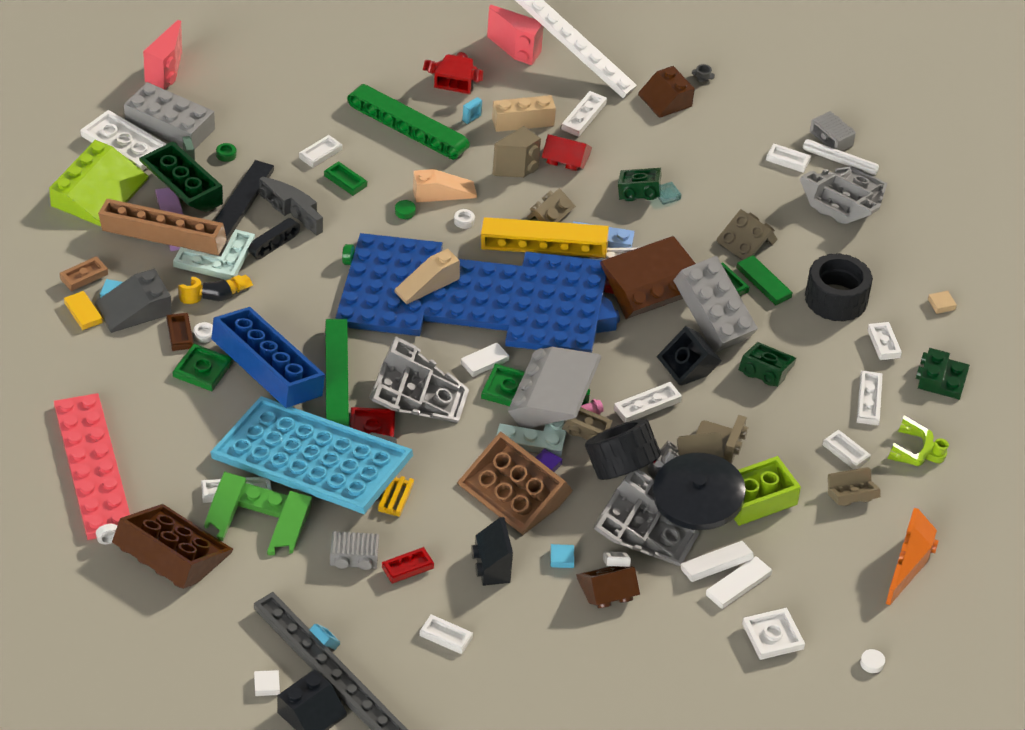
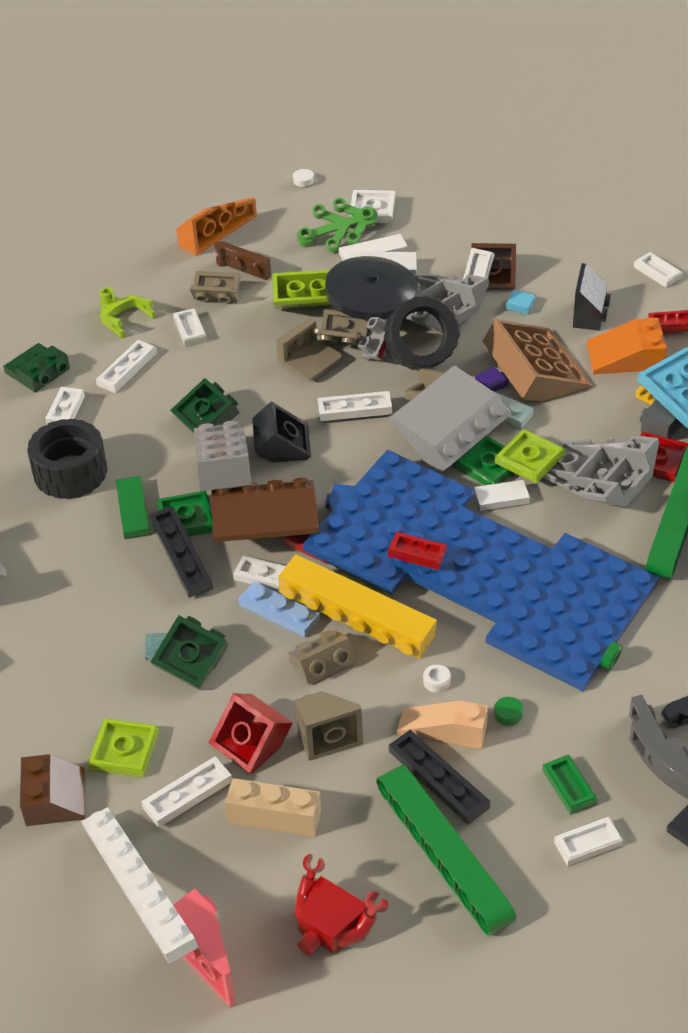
camera: 150 degrees left, 0 degrees up
(430, 157) = (439, 776): none -> black plate
(430, 276) = (528, 568): tan slope -> none
(436, 521) = (627, 347): none -> orange slope
(472, 110) = (342, 838): medium azure tile -> none
(476, 387) = (529, 456): none -> lime tile
(519, 266) = (417, 550): none -> red plate
(643, 131) = (123, 748): none -> lime tile
(699, 245) = (180, 551): none -> black plate
(745, 235) = (109, 550): dark tan bracket -> none
(766, 603) = (340, 224): none -> bright green plant
(851, 526) = (242, 260): none -> reddish brown plate

